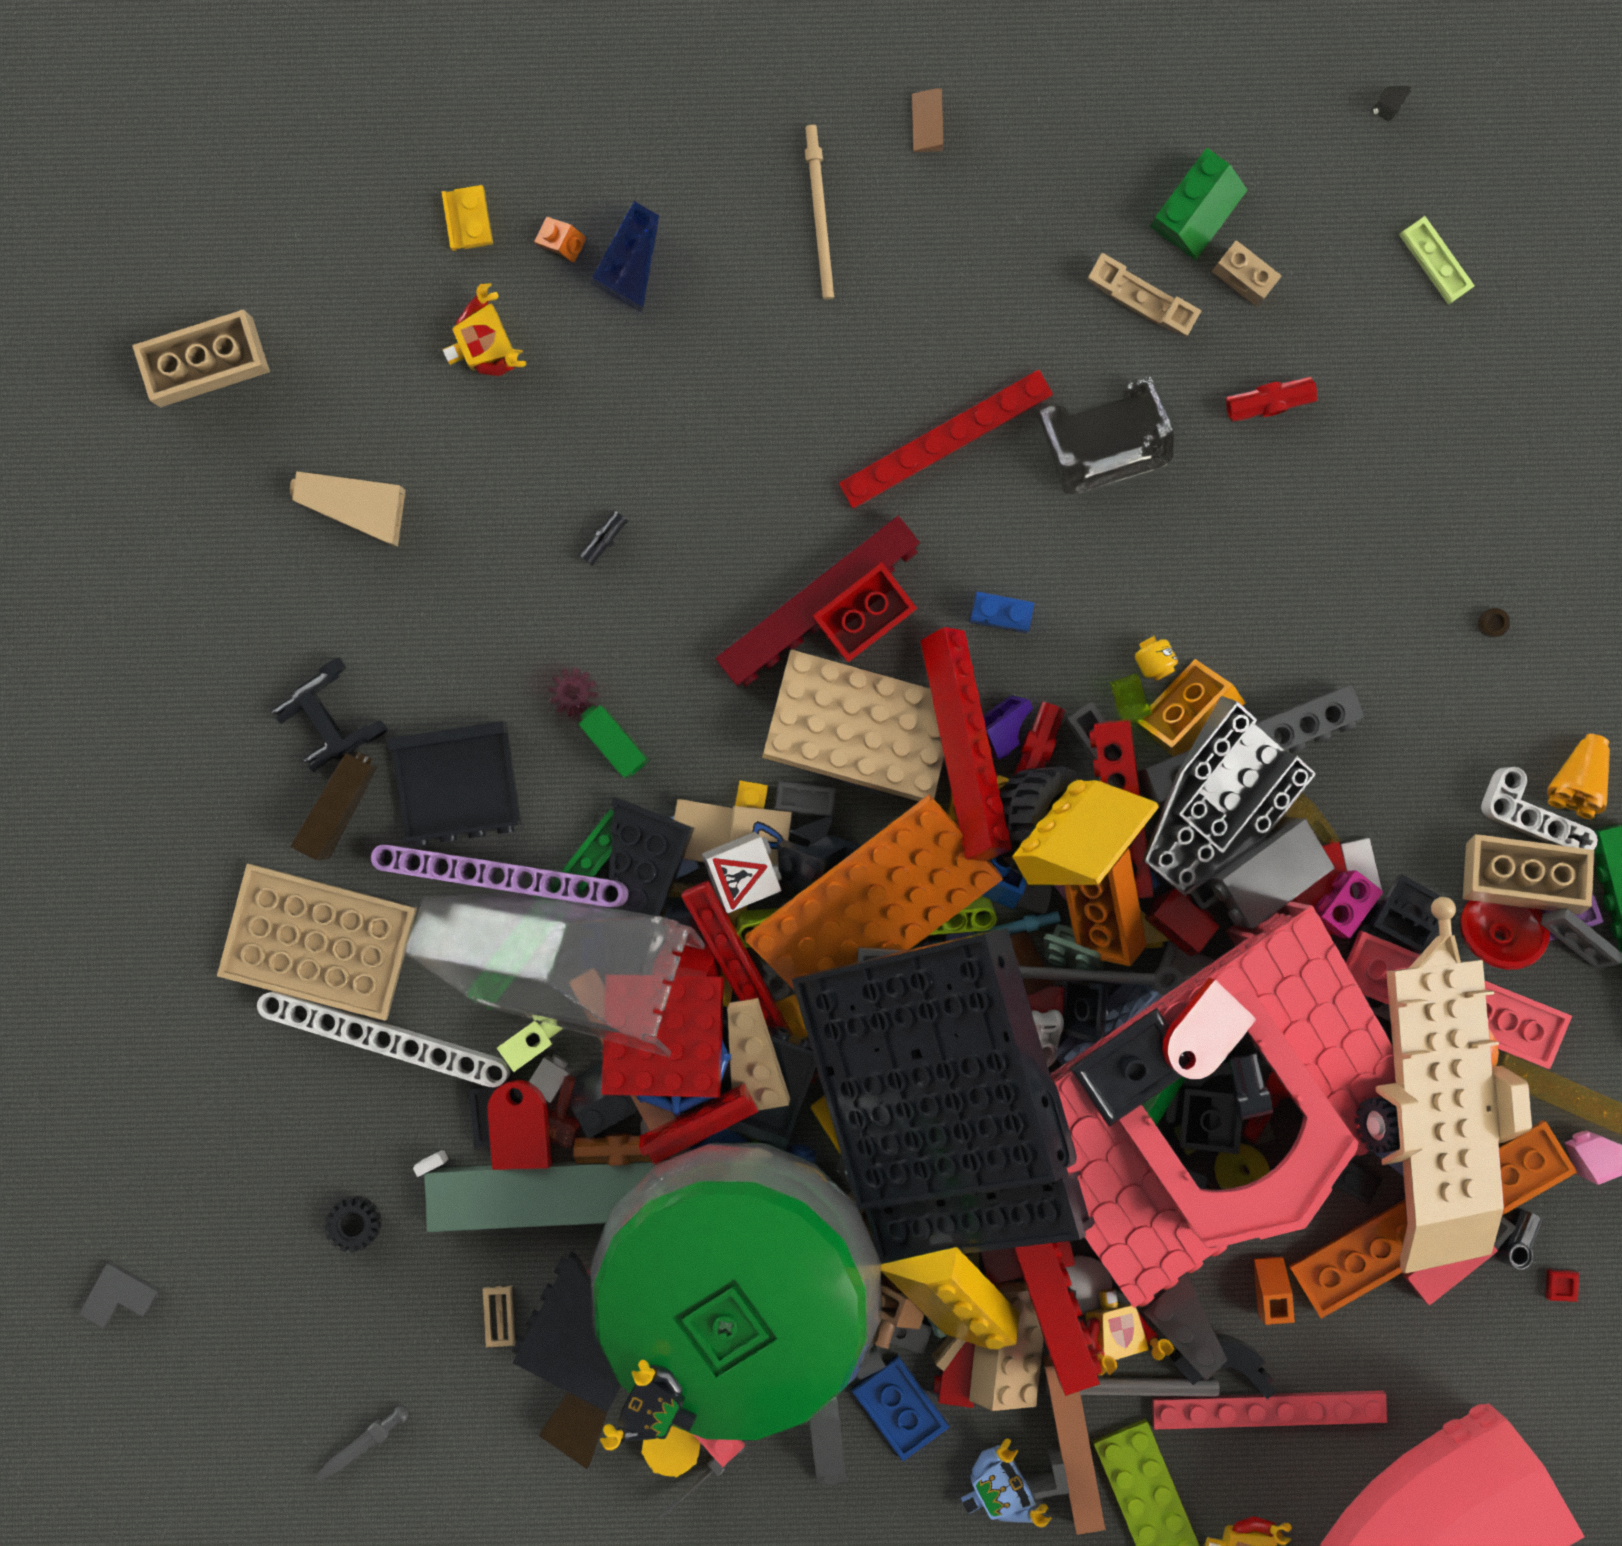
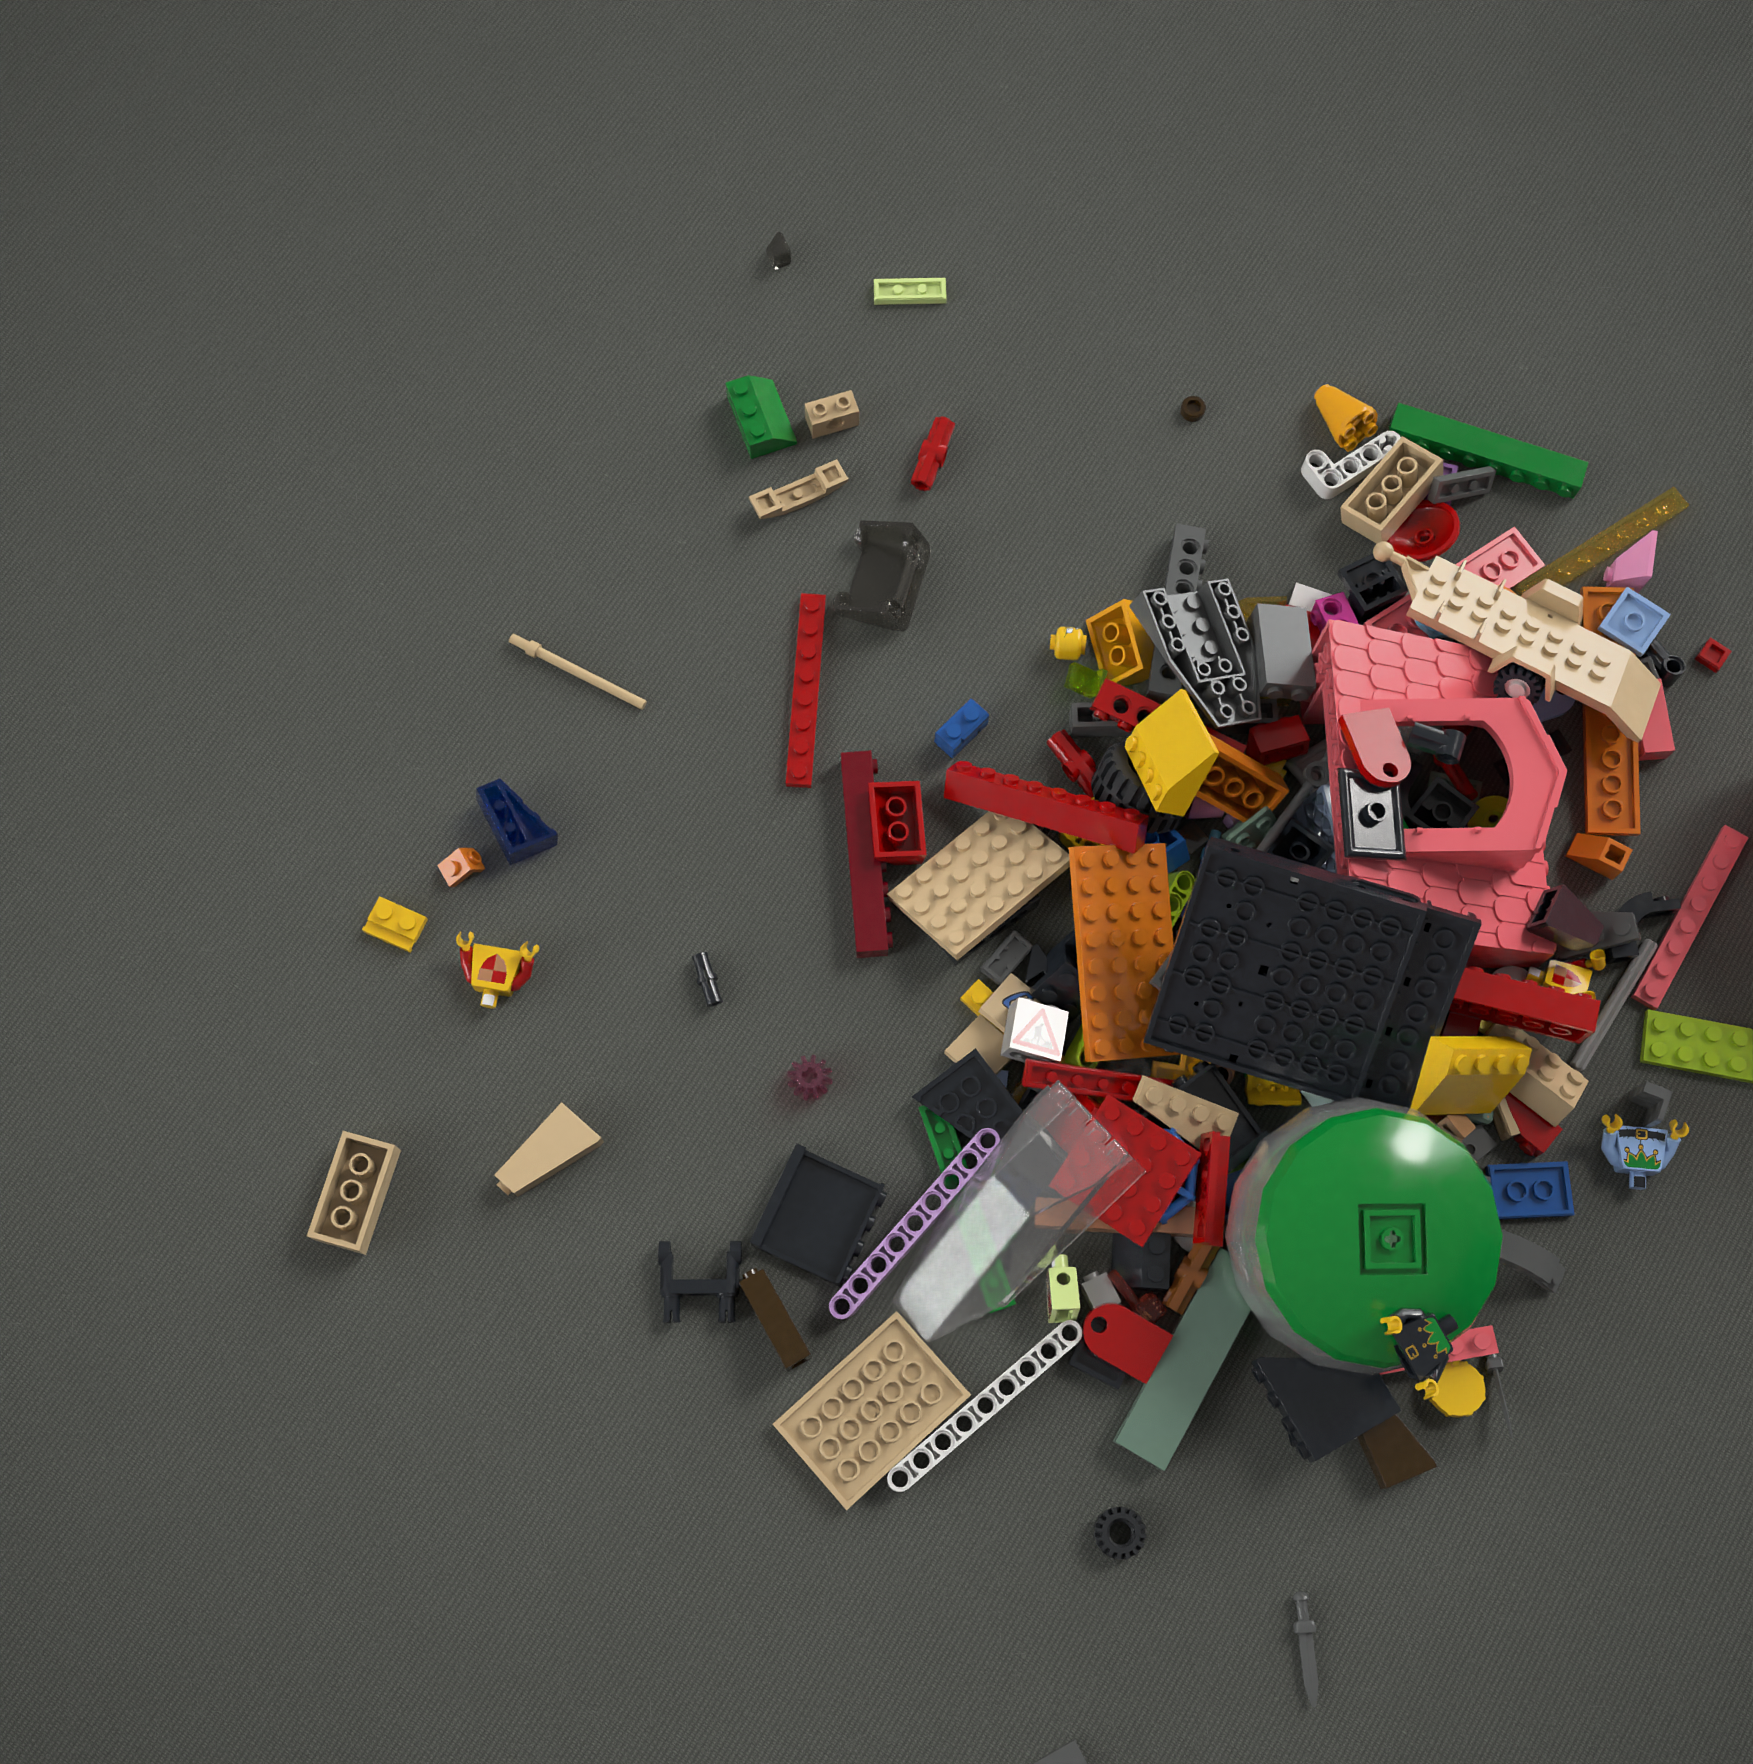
camera: 60 degrees left, 15 degrees down
(430, 1163) = (1109, 1434): white tile -> none
(498, 1291) = (1247, 1451): tan tile -> none
(613, 741) = (869, 1067): green brick -> none
(927, 121) = (567, 556): medium nougat slope -> none
(1004, 723) = (1042, 769): dark purple arch -> none
(1076, 1455) = (1634, 1070): nougat brick -> none
(1173, 1299) = (1564, 920): none -> black slope
(1539, 1192) = (1633, 621): none -> light blue tile

